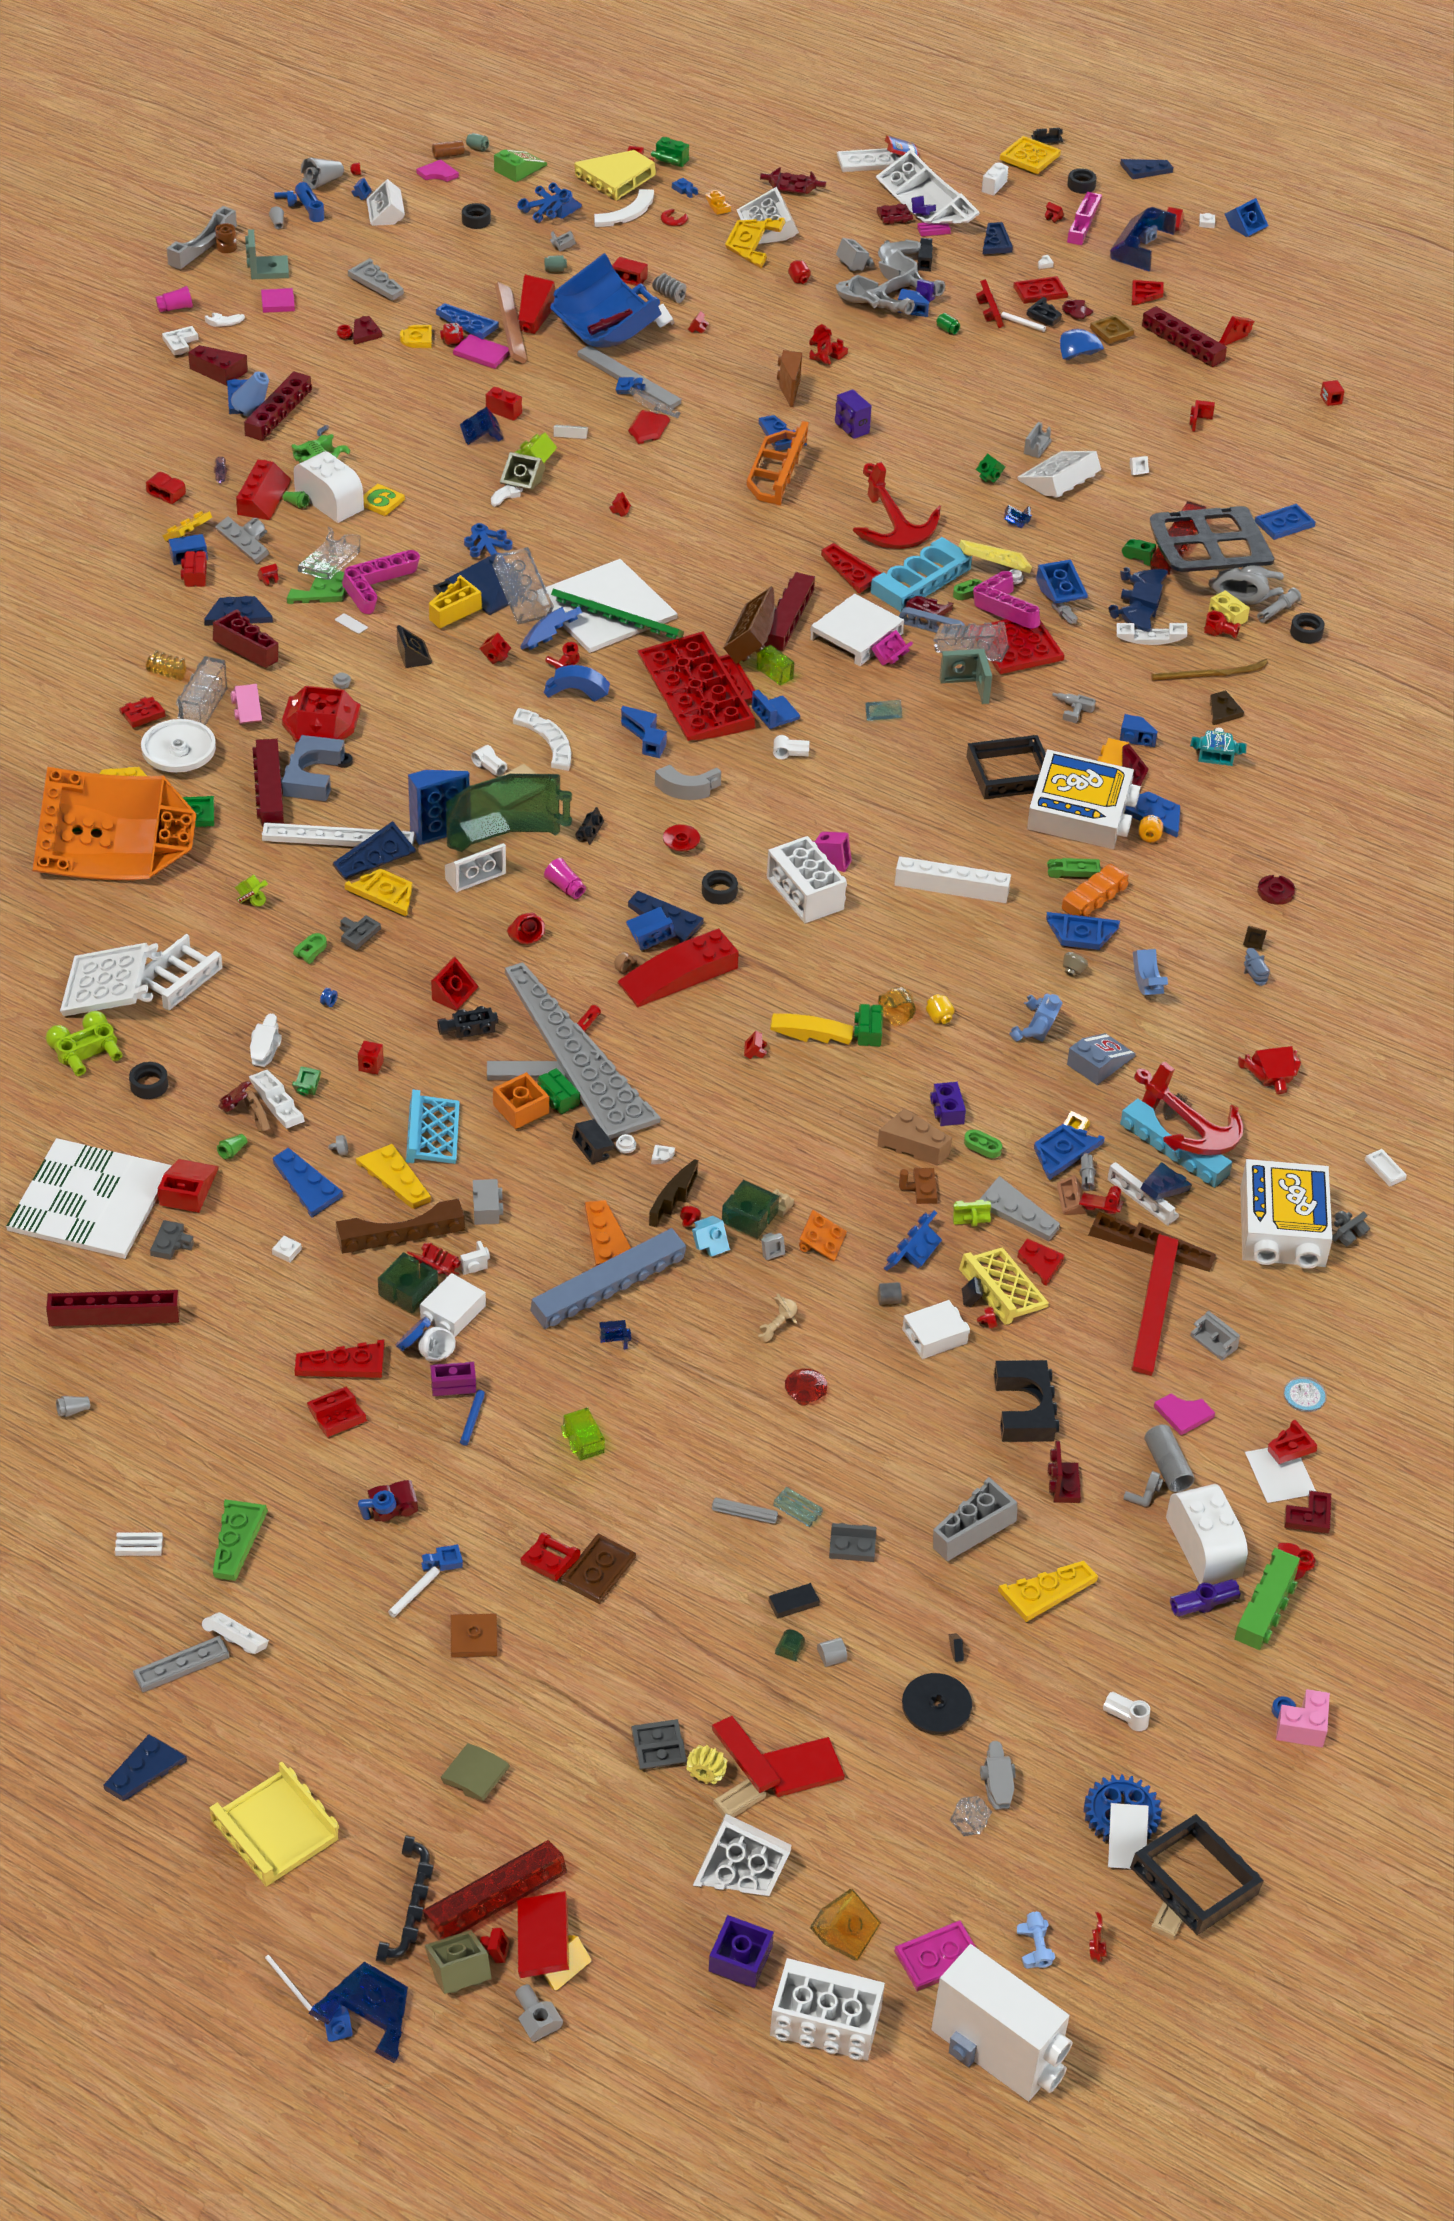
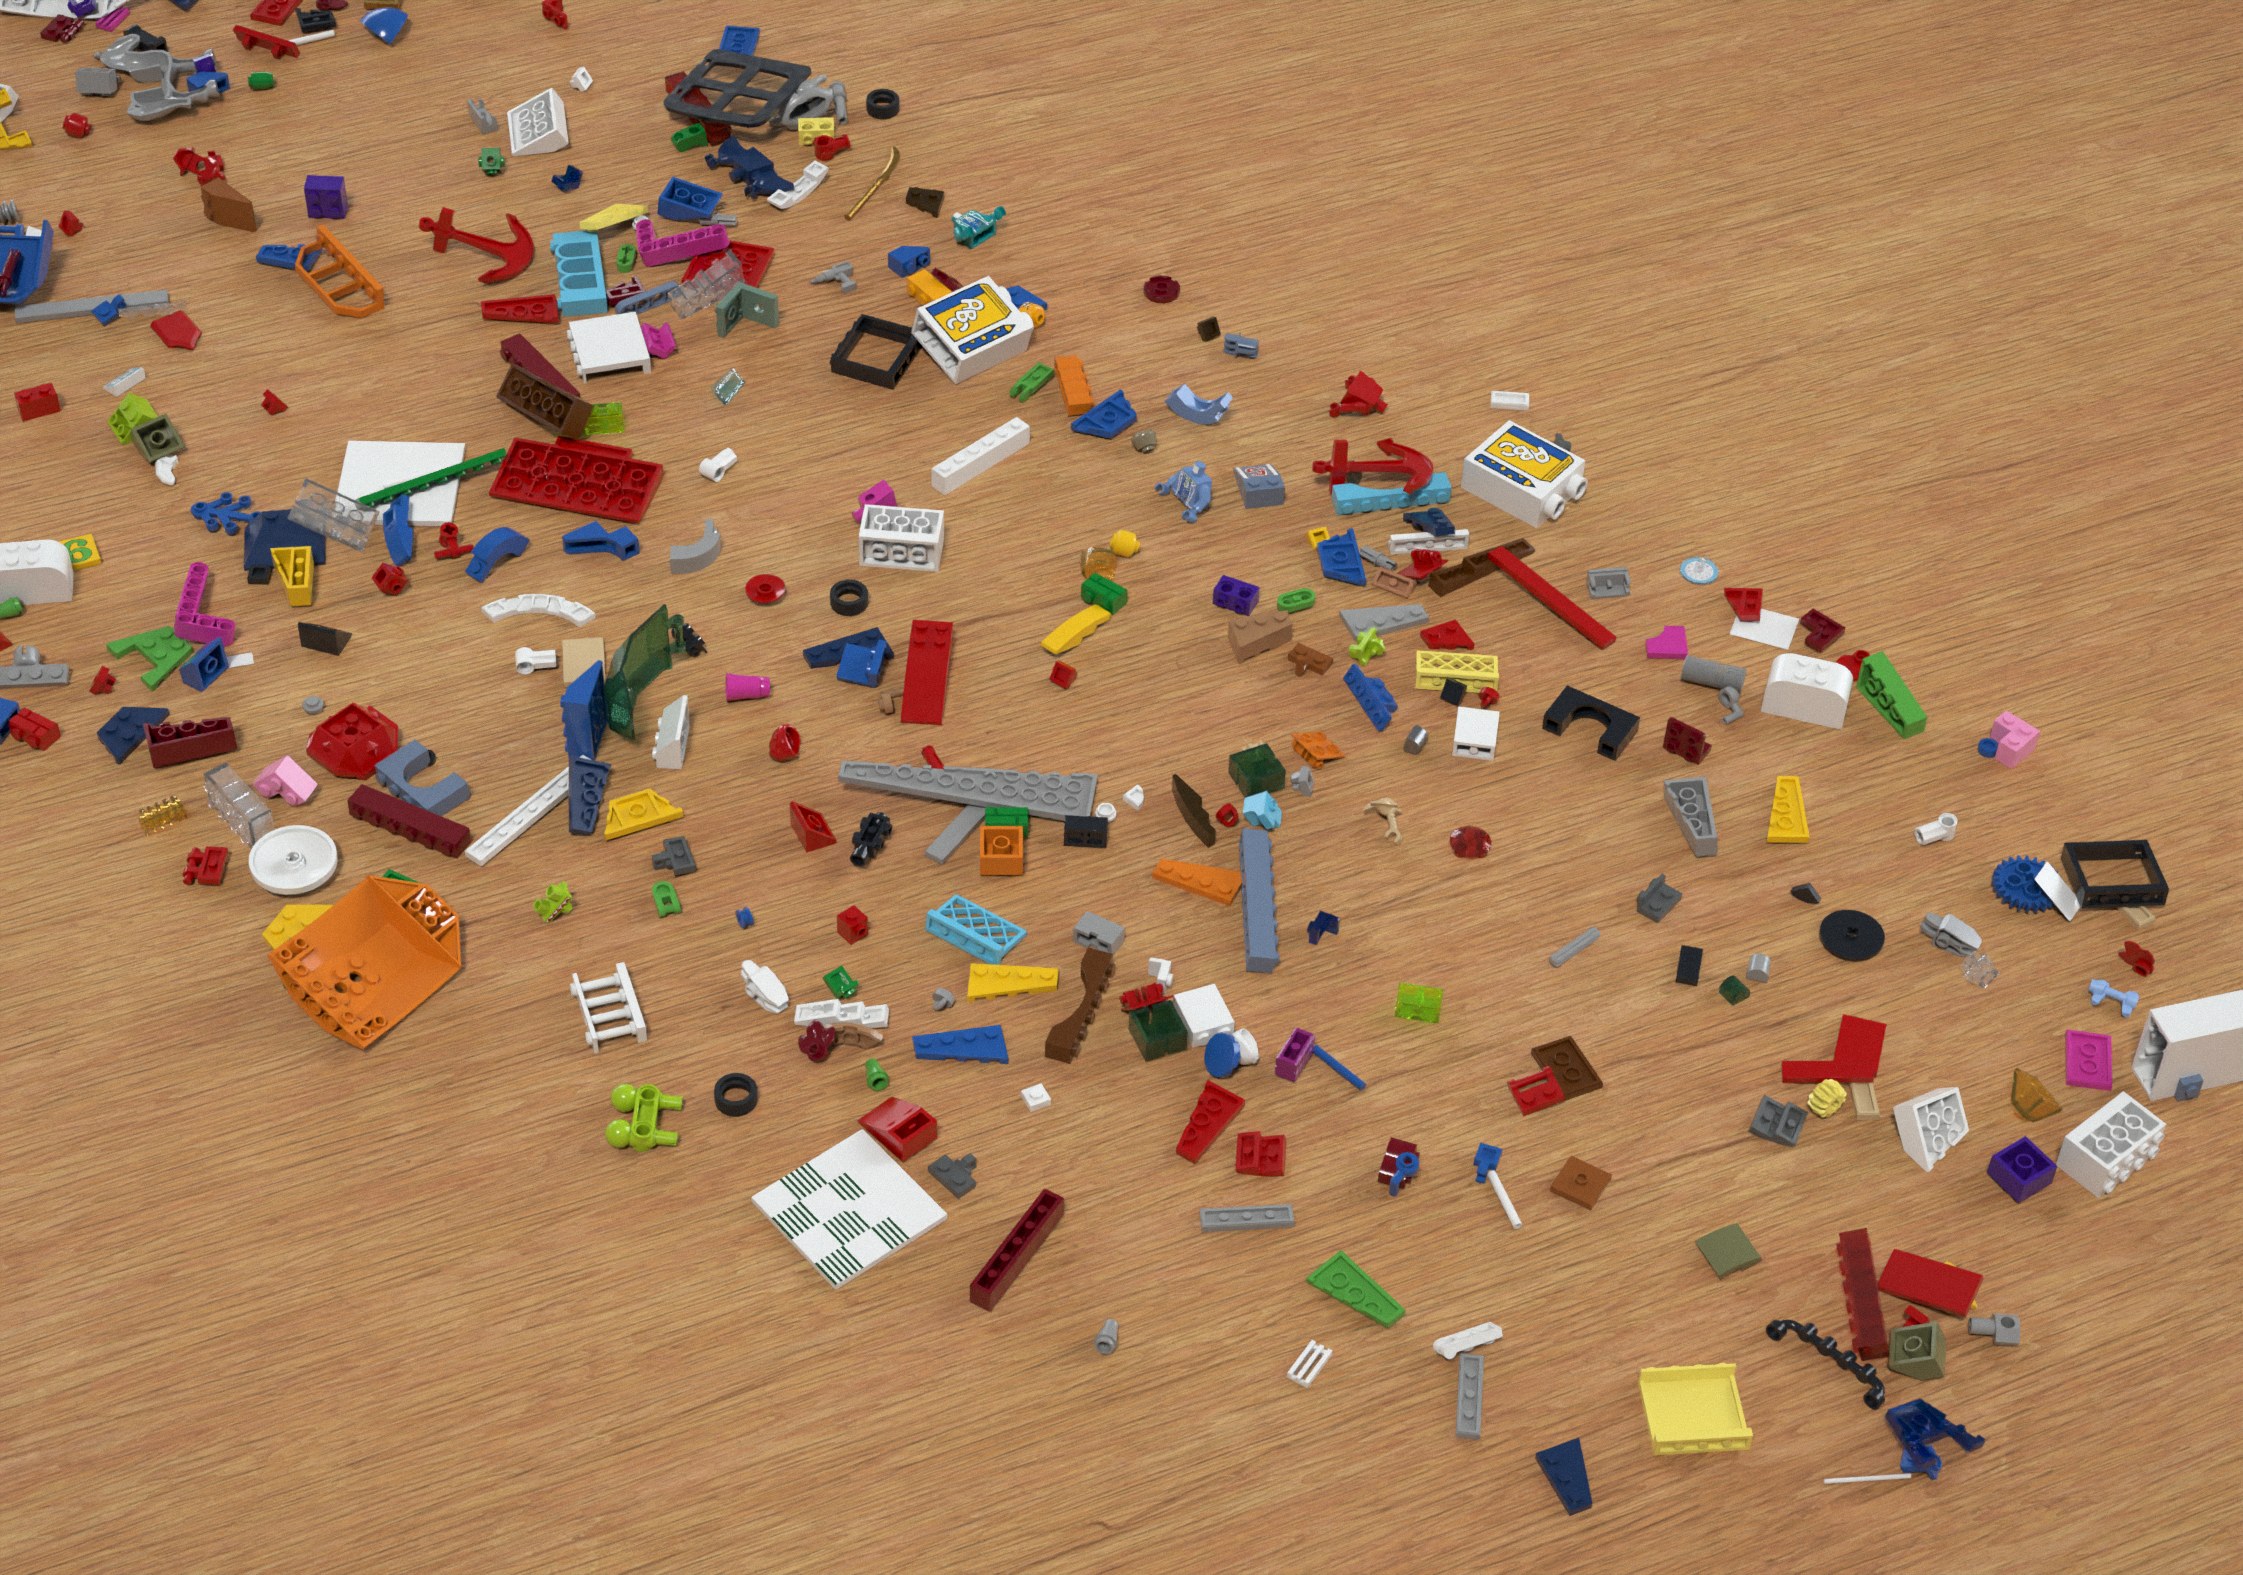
camera: 55 degrees left, 0 degrees up
(108, 979) = (579, 1059): white plate -> none
(263, 1434) = (1246, 1218): none -> light grey tile
(324, 609) = (205, 665): none -> blue slope
(331, 556) = (128, 625): clear plate -> none
(479, 425) = (51, 435): clear blue bracket -> none
(773, 711) = (659, 450): blue bracket -> none
(795, 1508) = (1594, 916): clear light blue tile -> none
(1205, 1597) = (1860, 730): dark purple piece -> none

